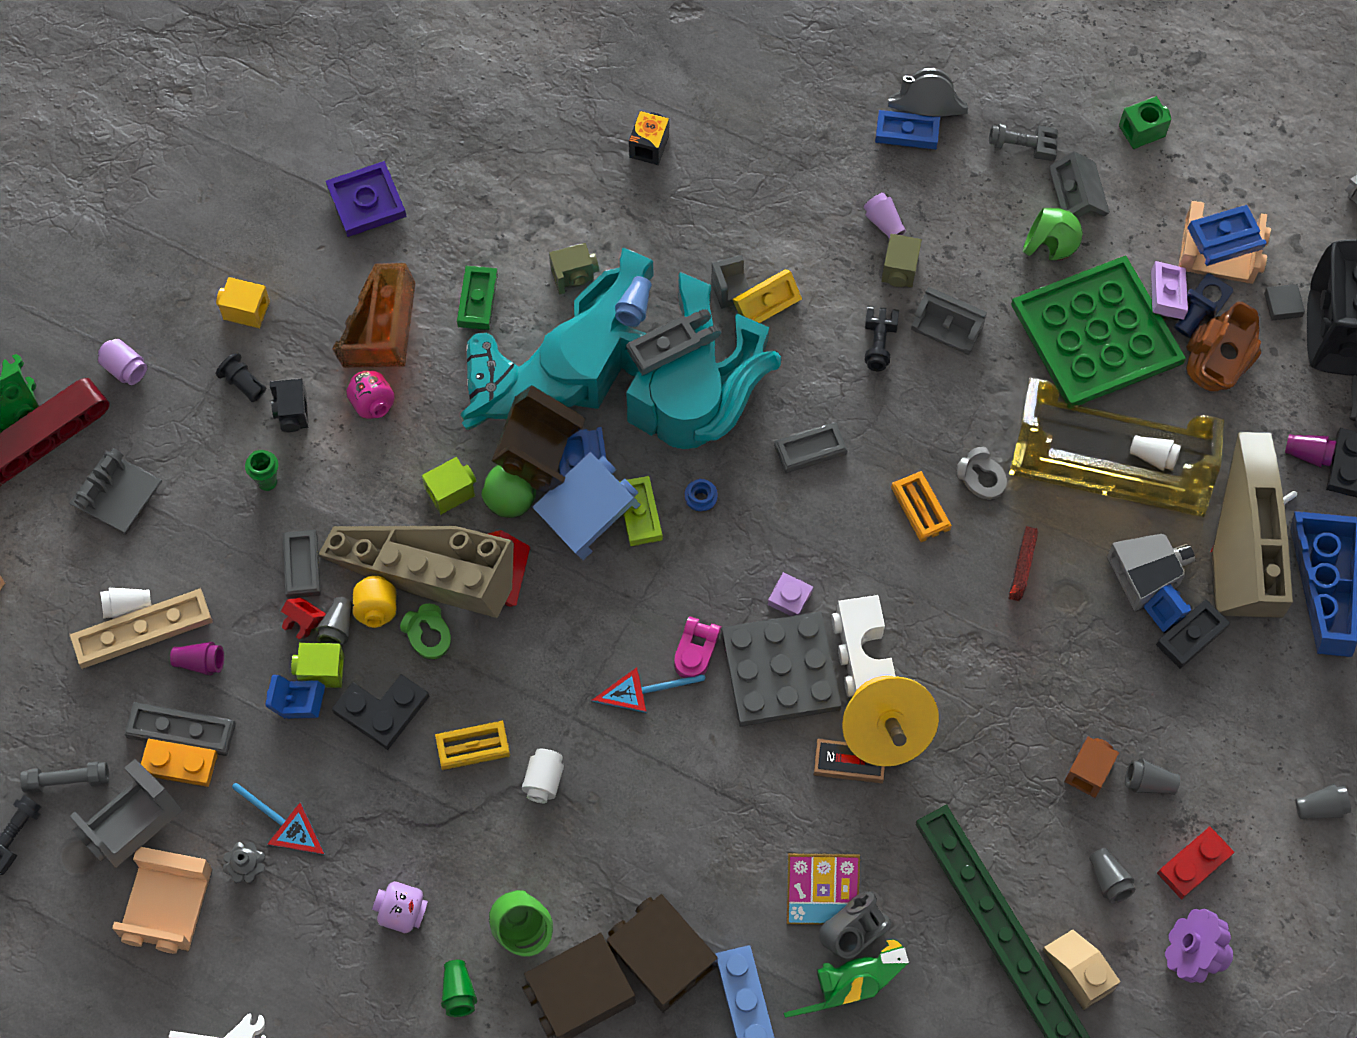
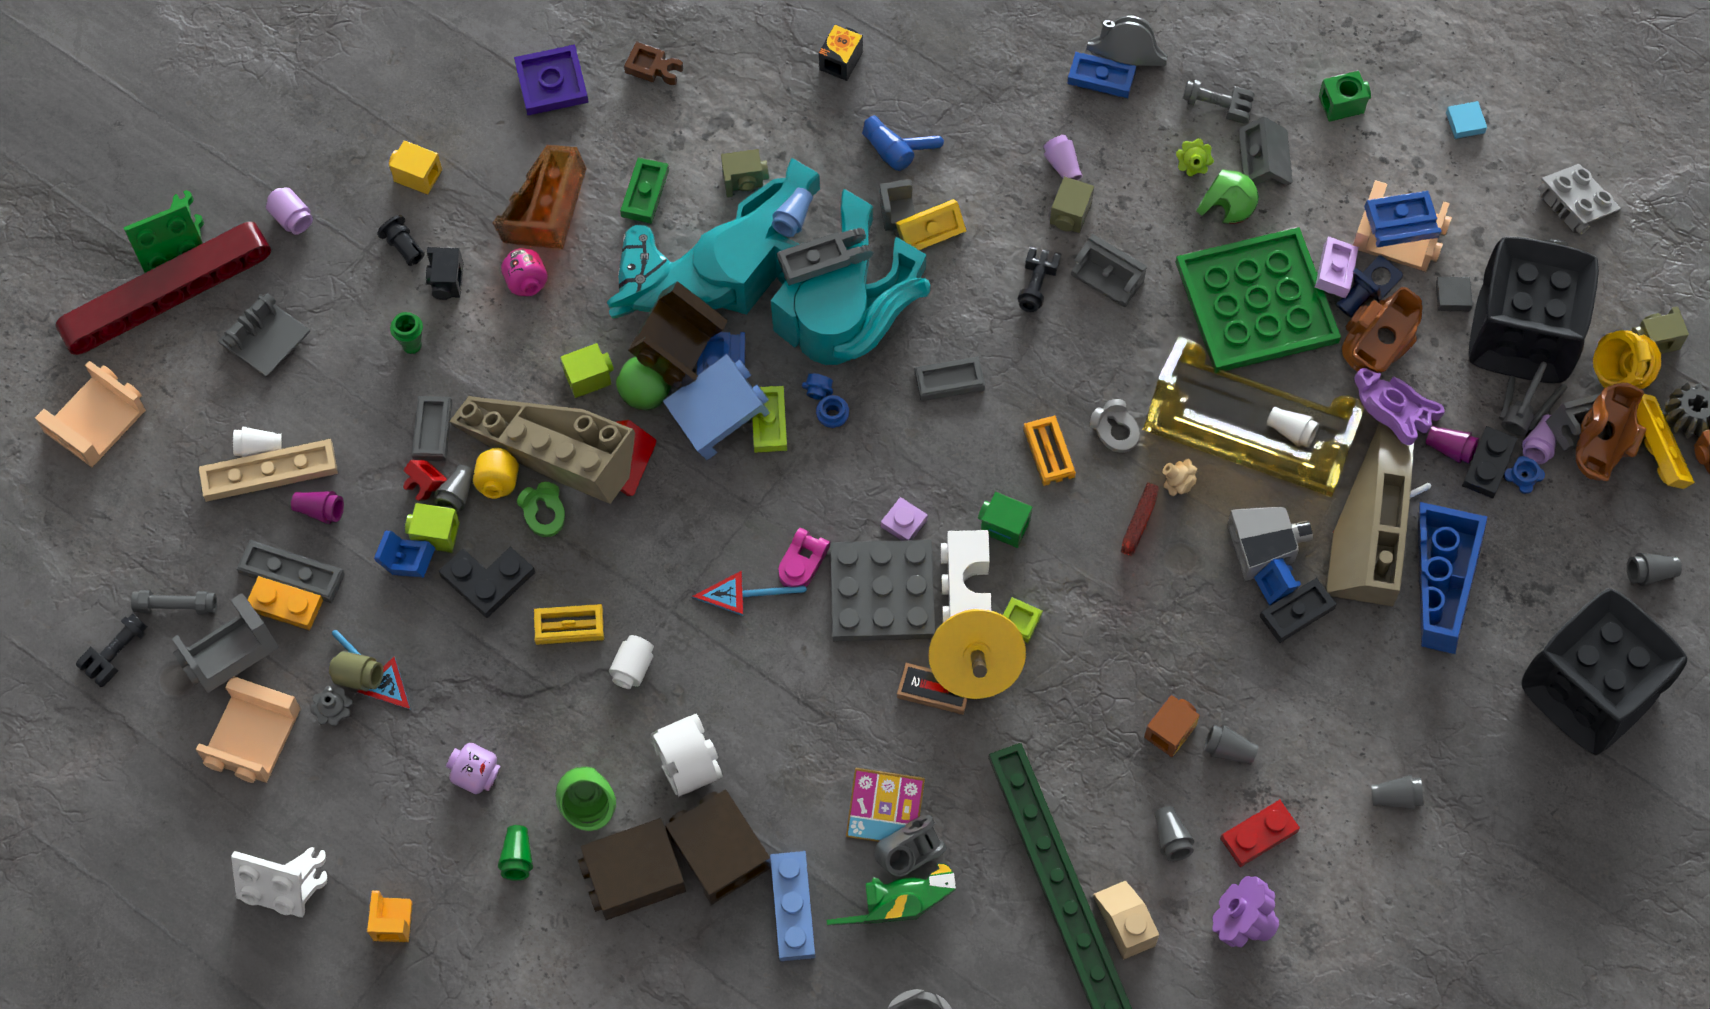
camera: 10 degrees right, 0 degrees up
(264, 823) = (356, 671): none -> olive brick
(461, 169) = (650, 62): none -> reddish brown plate
(615, 865) = (686, 755): none -> white brick
(682, 472) = (818, 386): none -> blue plate
(715, 226) = (894, 149): none -> blue piece
(891, 580) = (1005, 519): none -> green brick
(925, 674) = (1024, 617): none -> lime tile
(1012, 199) = (1194, 157): none -> lime plant
(1054, 516) = (1179, 477): none -> tan plant
(1252, 418) = (1397, 405): none -> medium lavender tile
(1264, 131) = (1466, 119): none -> medium azure tile

